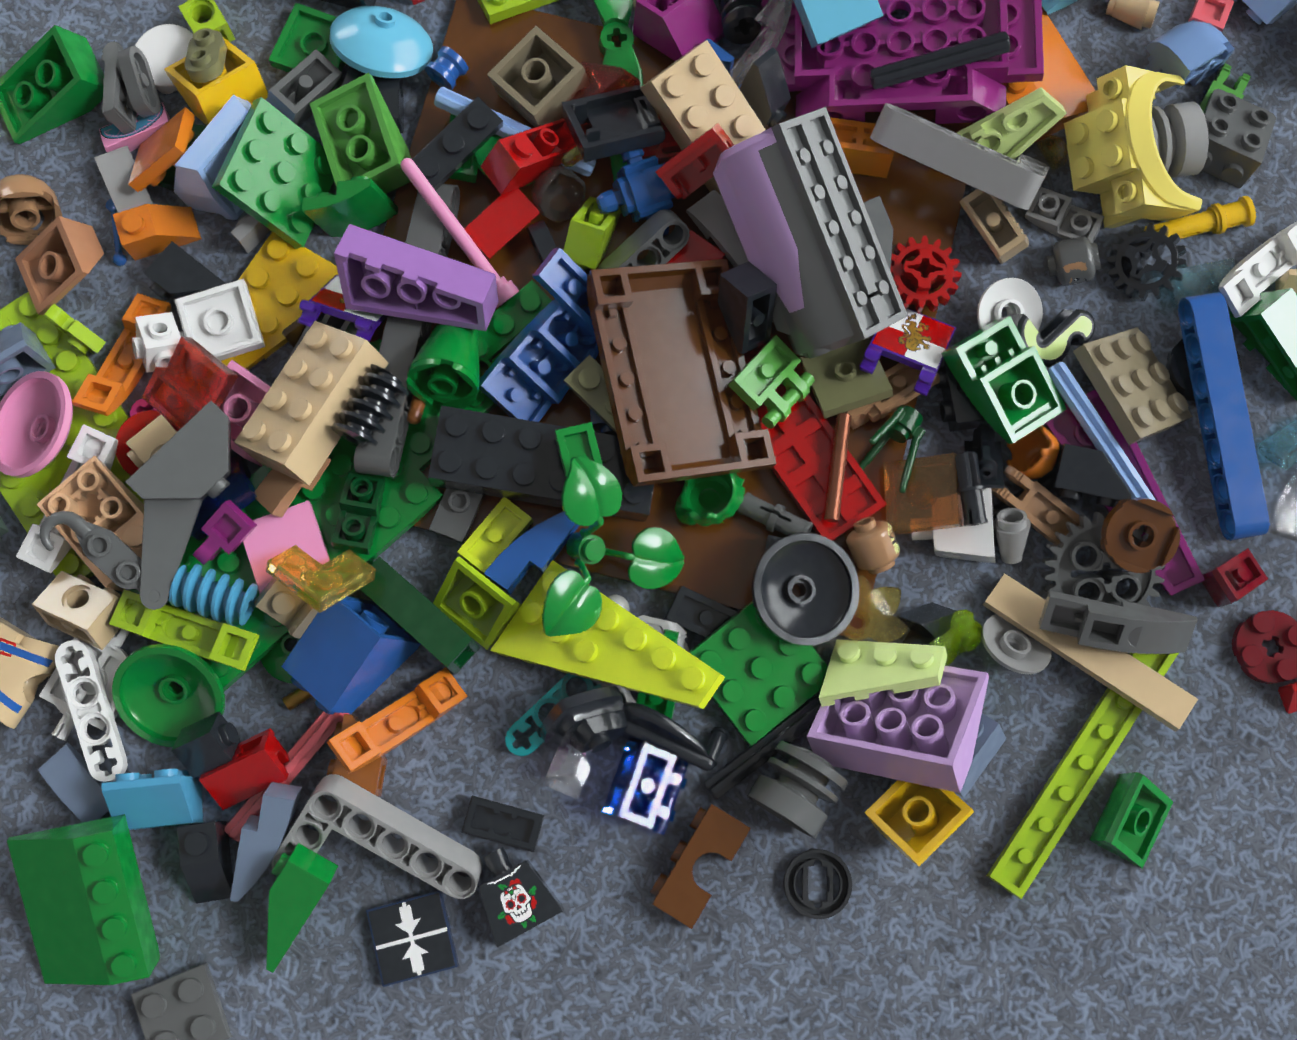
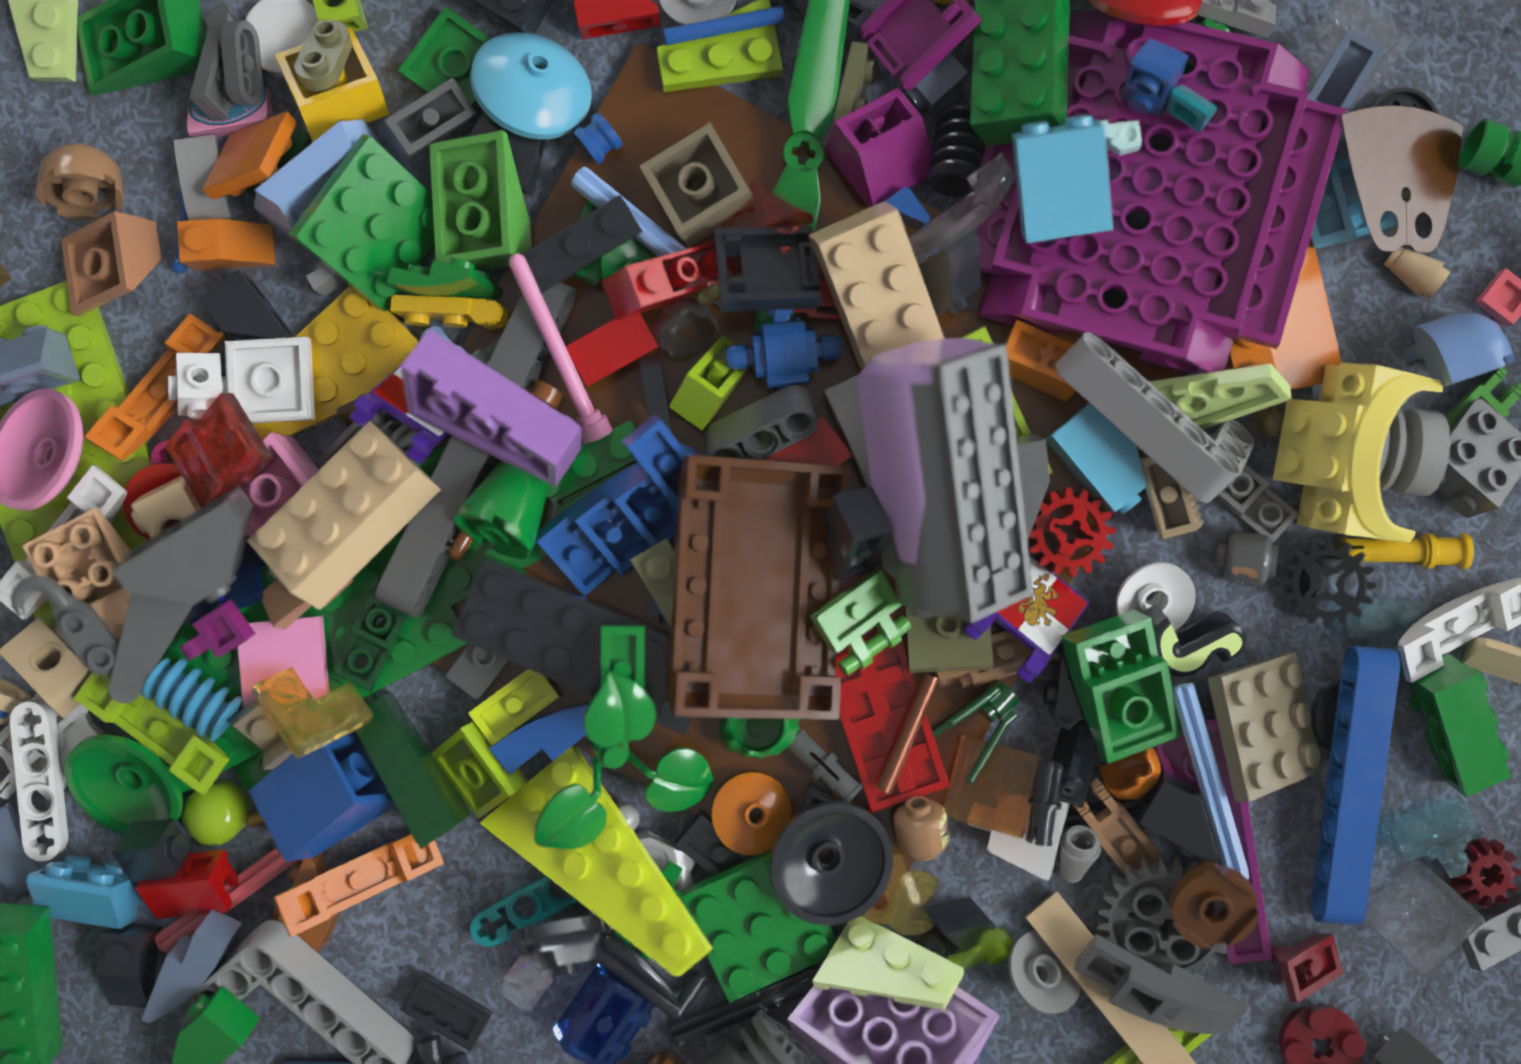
camera: 15 degrees right, 10 degrees up
(80, 336) = (114, 352): lime plate -> none
(254, 704) = (217, 814): none -> lime hair
(370, 407) = (406, 545): black piece -> none
(385, 222) = (453, 311): none -> yellow hinge
(694, 163) = (845, 346): red hinge -> none
(710, 582) = (732, 810): none -> orange dish
(928, 206) = (1100, 458): none -> medium azure slope
(940, 60) = (1163, 299): black axle -> none

